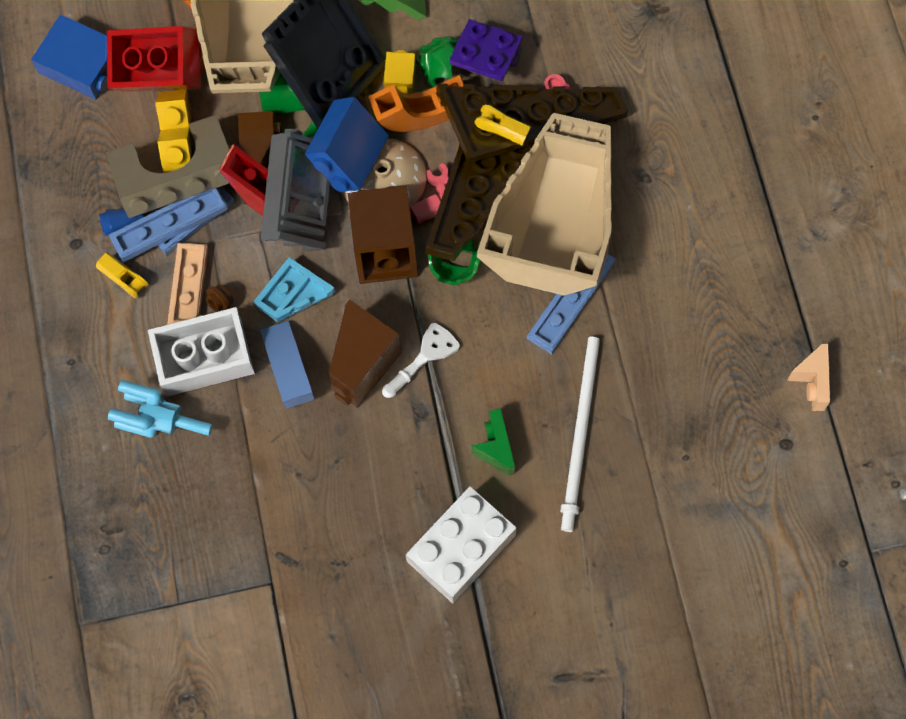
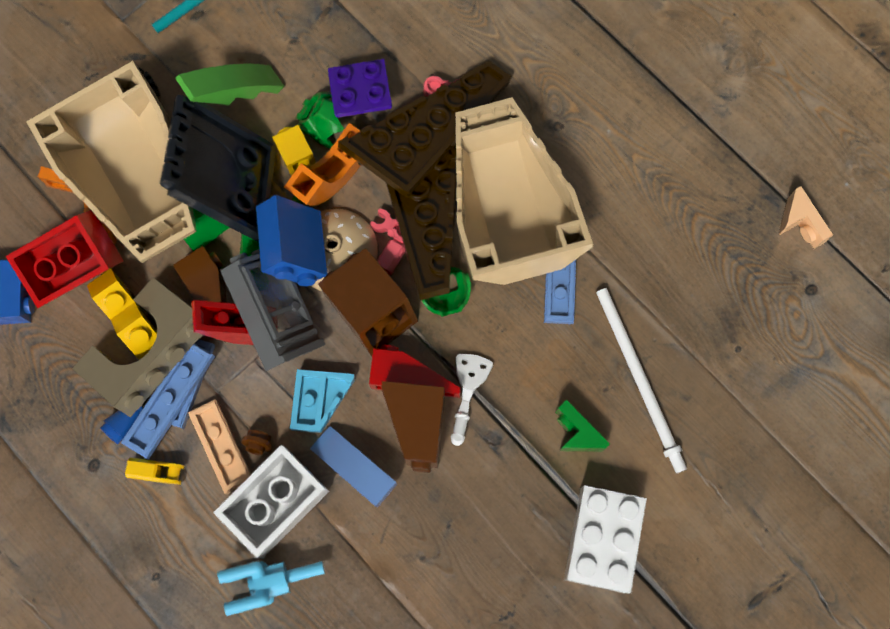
camera: 30 degrees left, 5 degrees up
(373, 298) = (397, 366): none -> red slope
(507, 127) = (423, 147): yellow bar -> none

